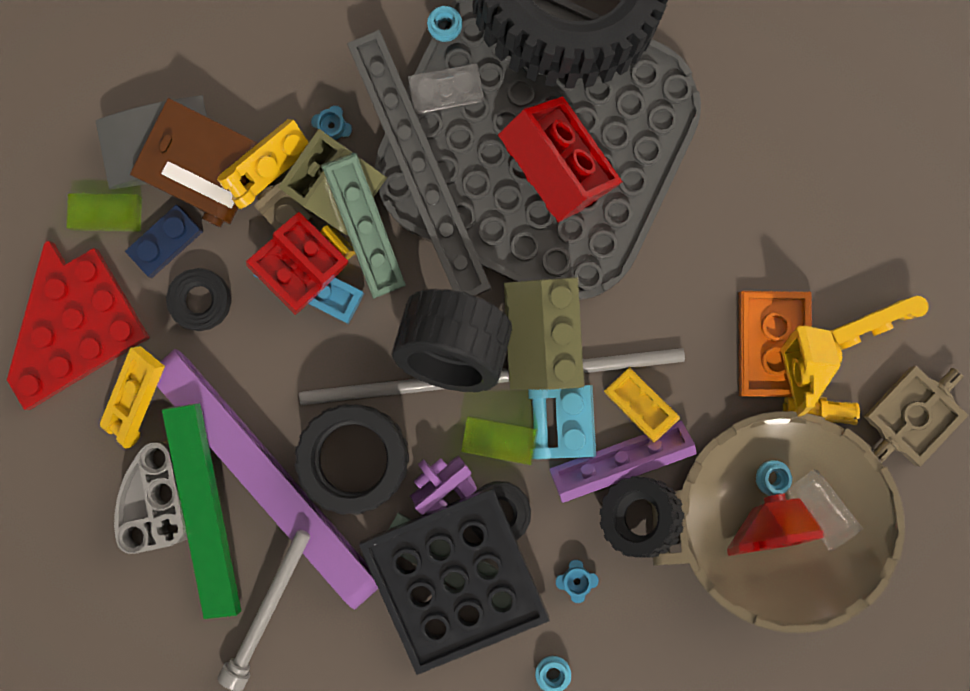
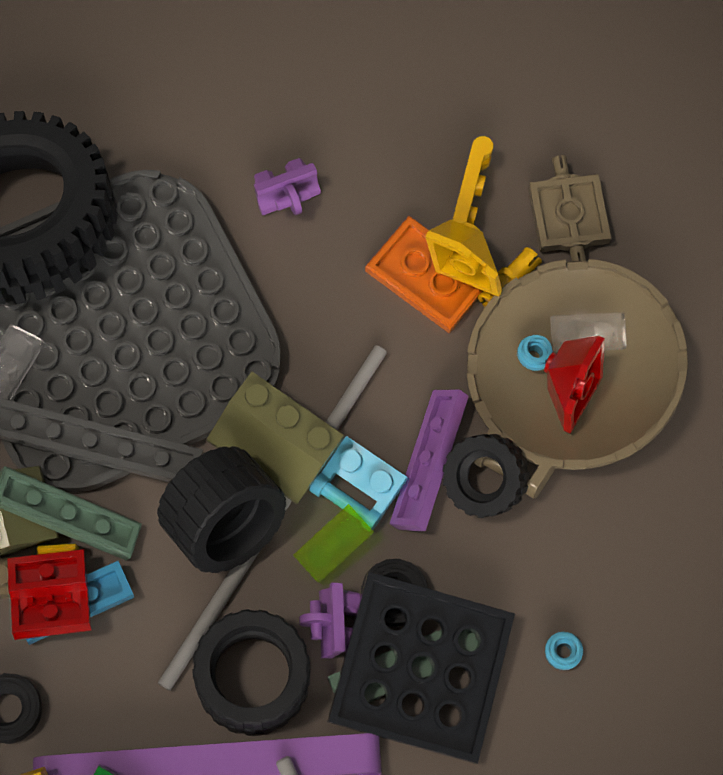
camera: 60 degrees left, 15 degrees down
(559, 157) = (142, 318): red slope -> none
(579, 591) = (501, 562): dark azure plate -> none
(642, 405) = (395, 410): yellow plate -> none
(757, 182) = (286, 189): none -> medium lavender hips

